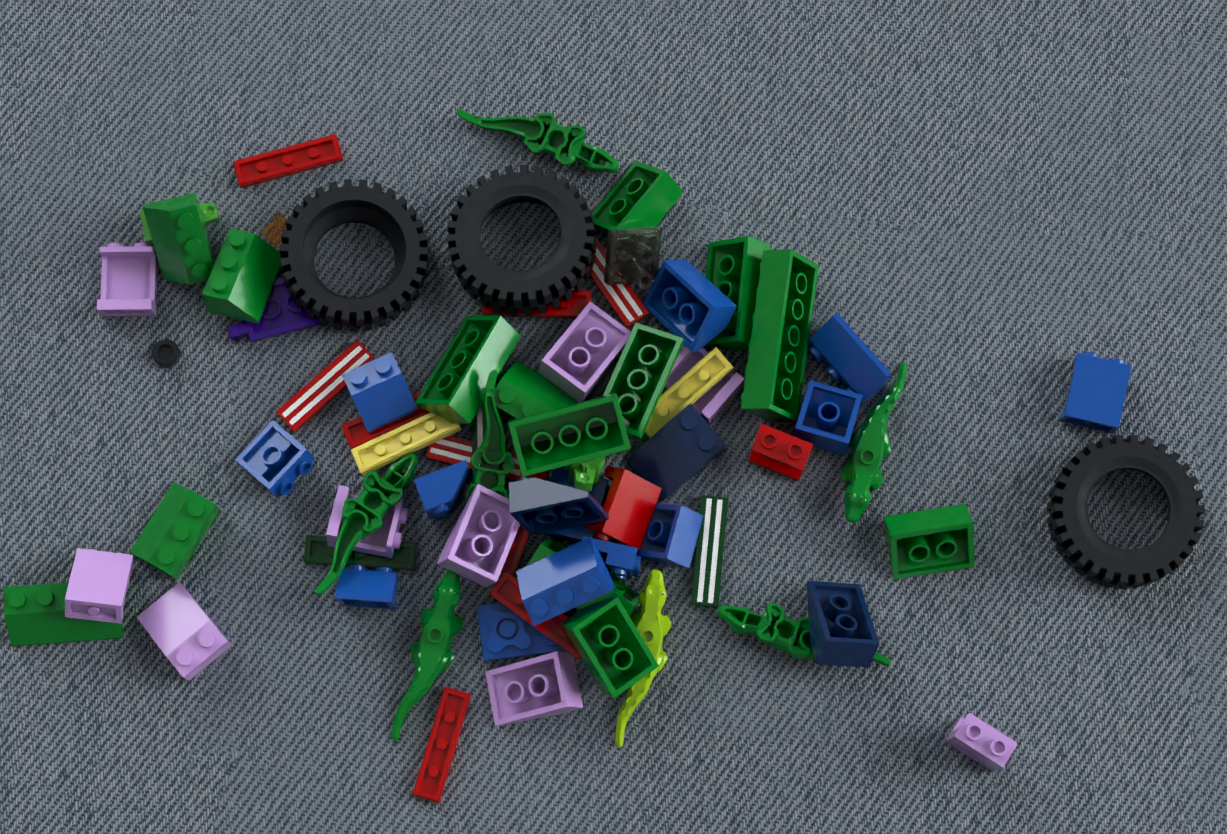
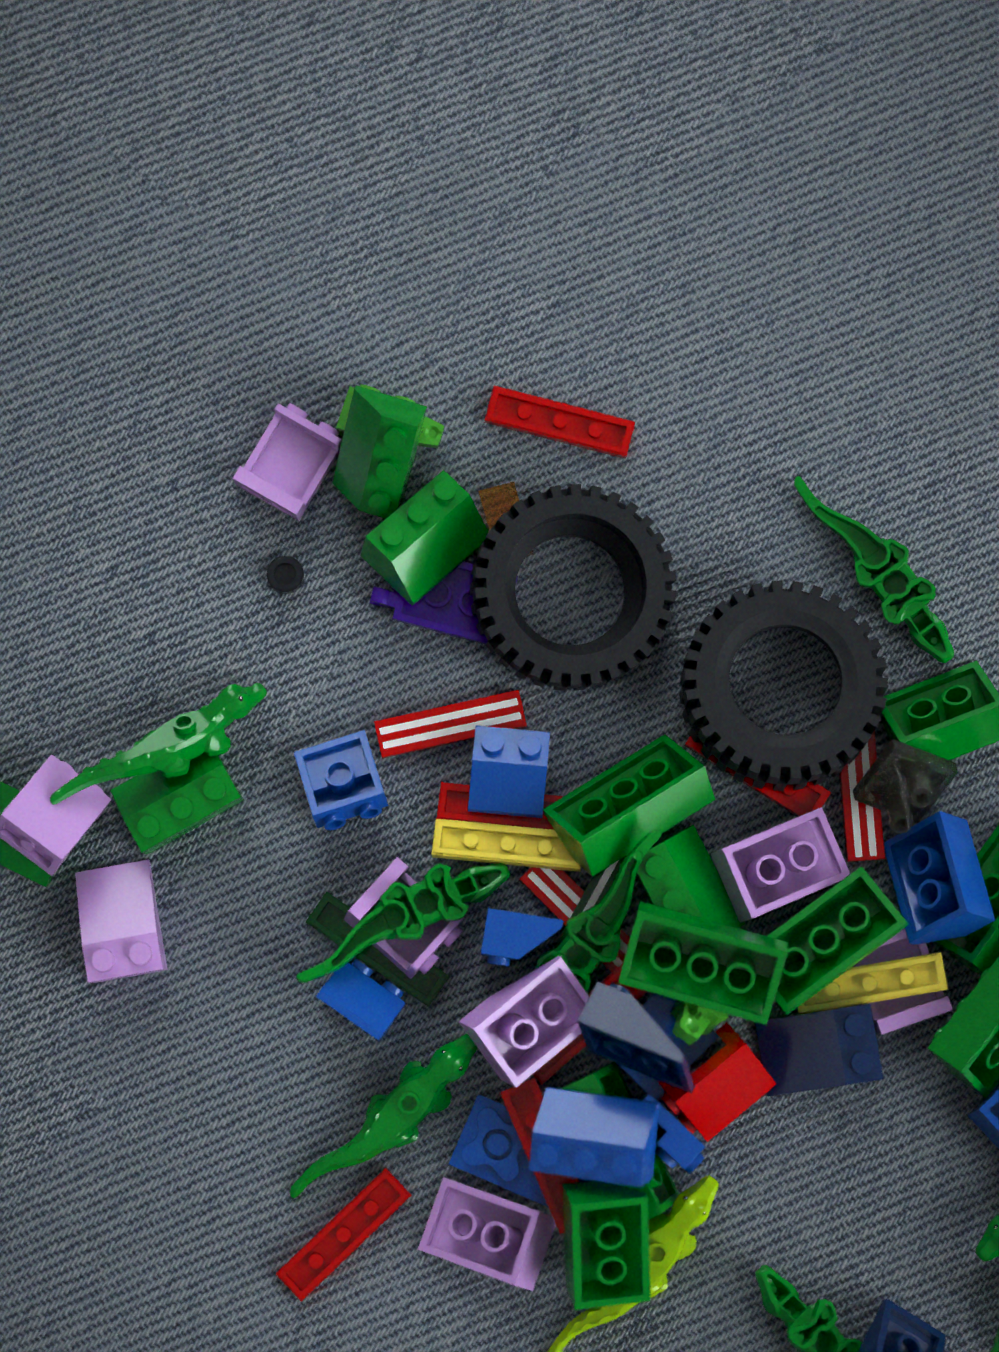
camera: 30 degrees right, 5 degrees up
(152, 496) = (173, 743): none -> green animal
(671, 535) = (755, 1147): blue slope -> none
(709, 552) = (790, 1190): dark green tile -> none
(780, 452) = (943, 1126): red panel -> none

